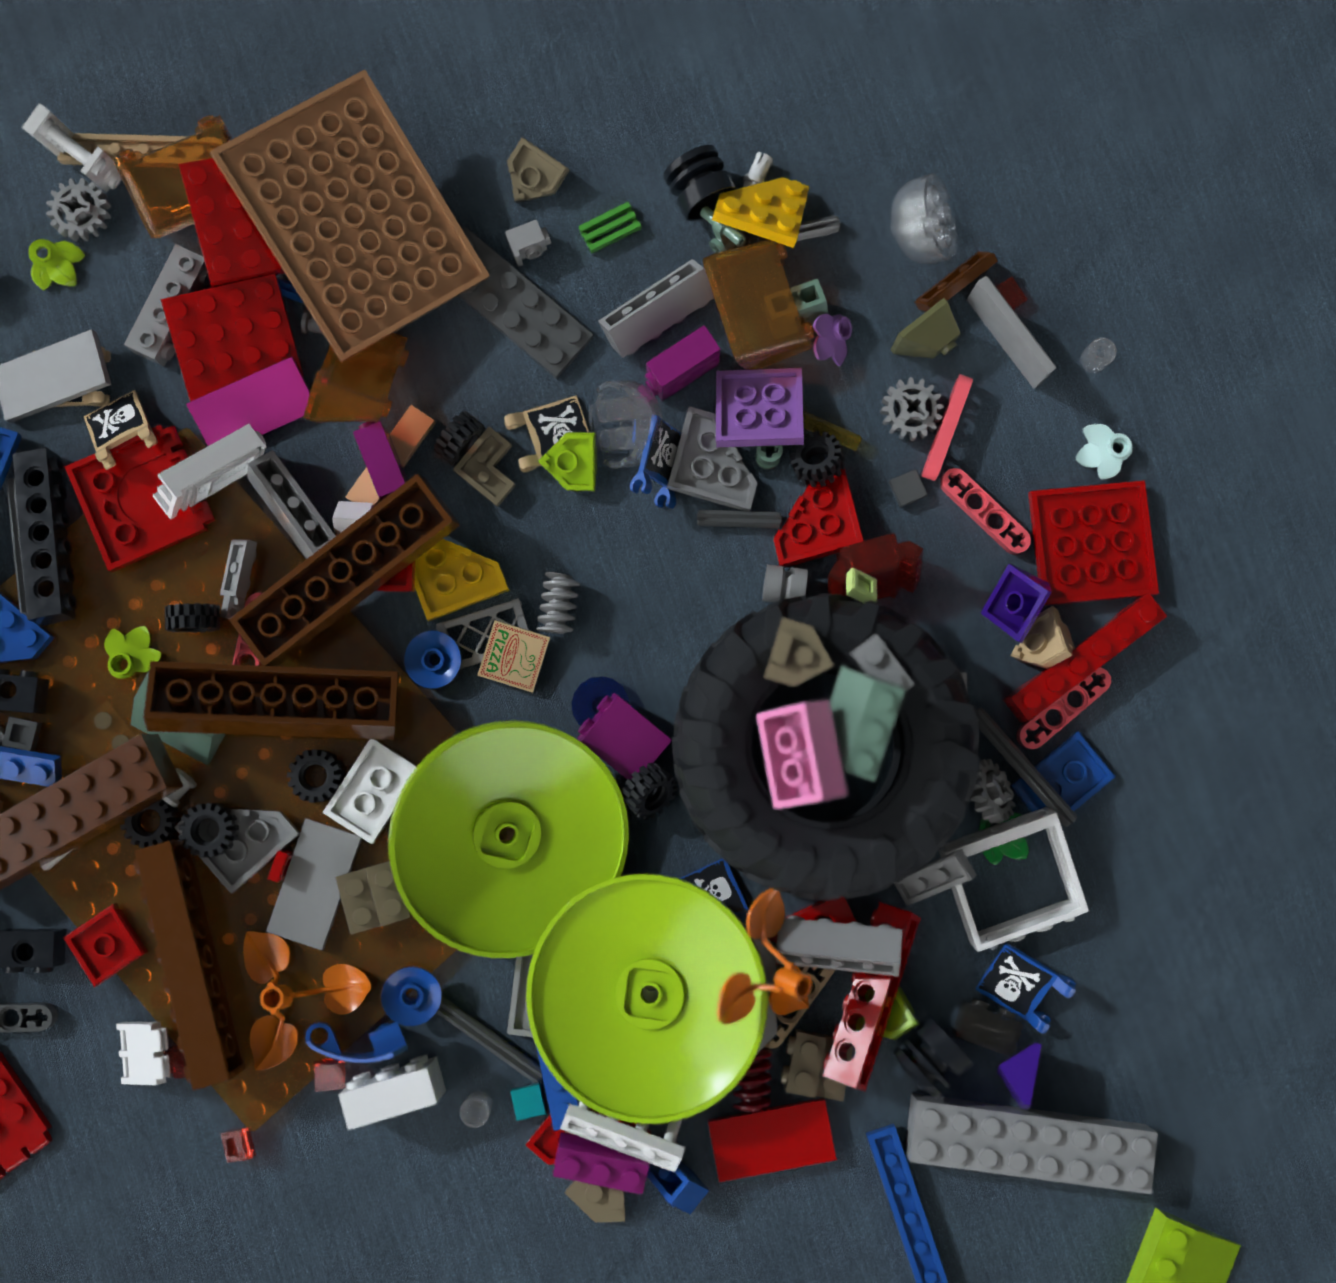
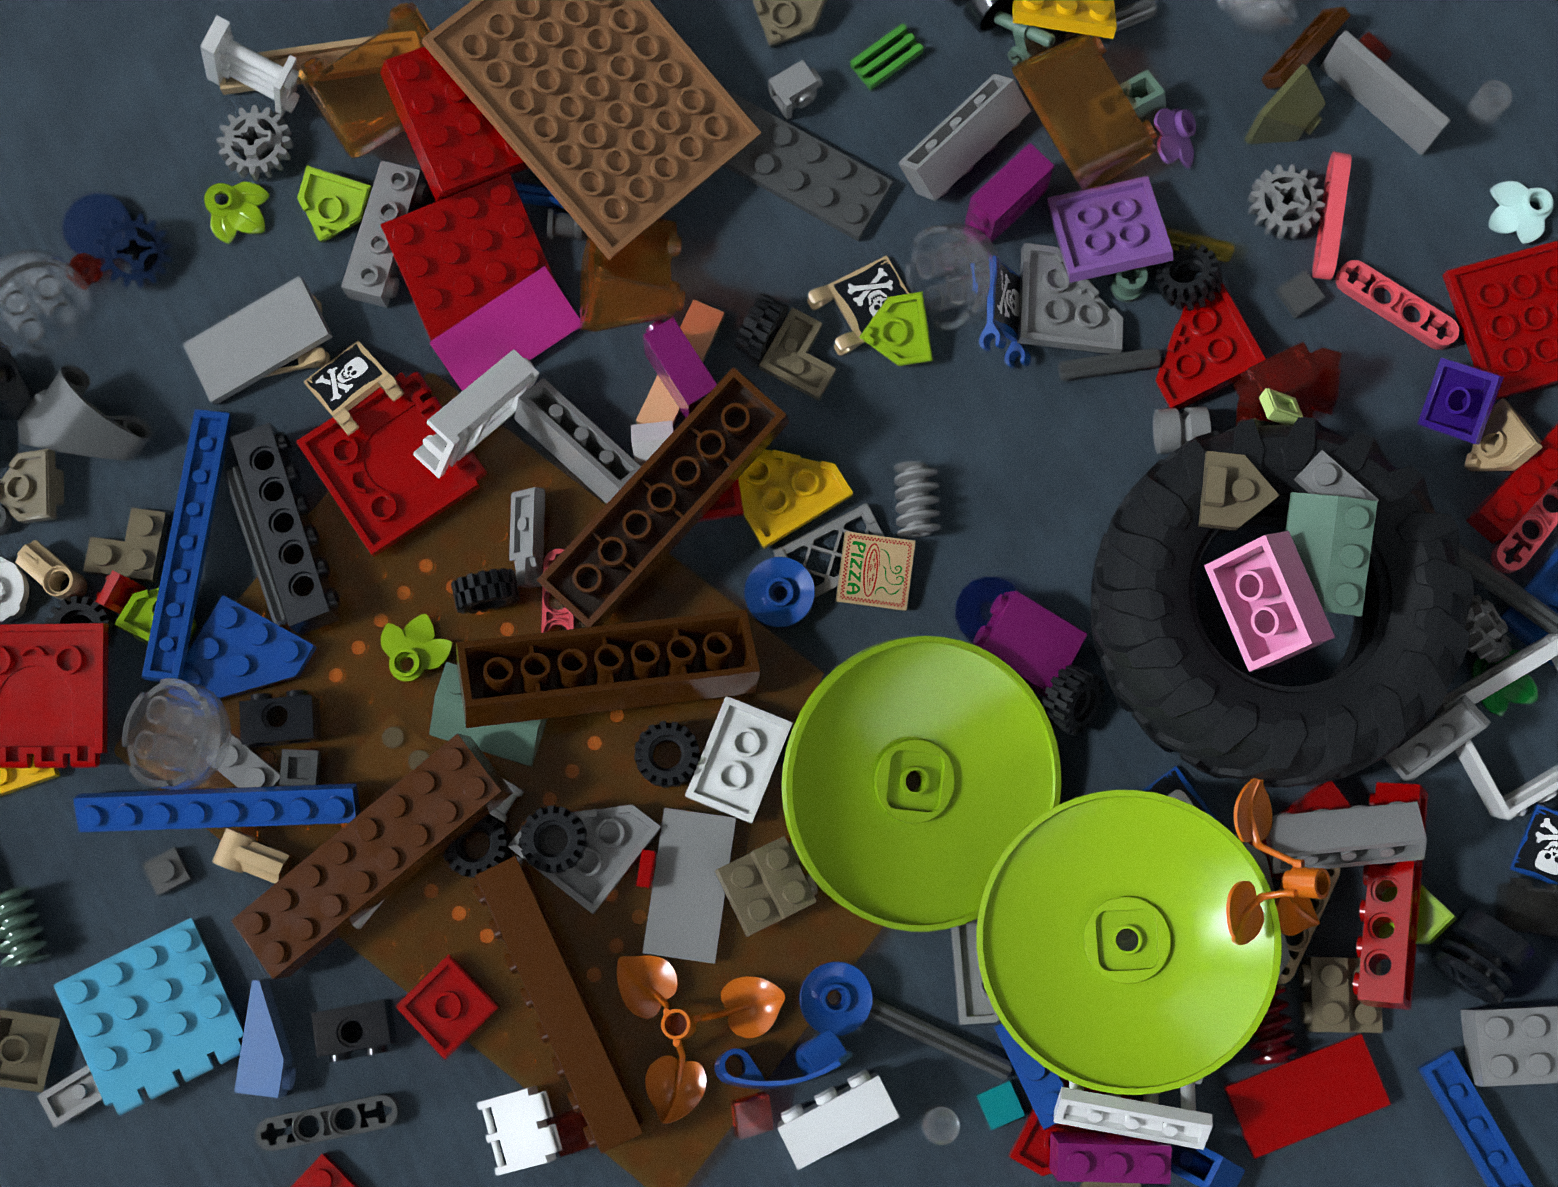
camera: 10 degrees left, 5 degrees down
(131, 270) = (332, 202): none -> lime plate

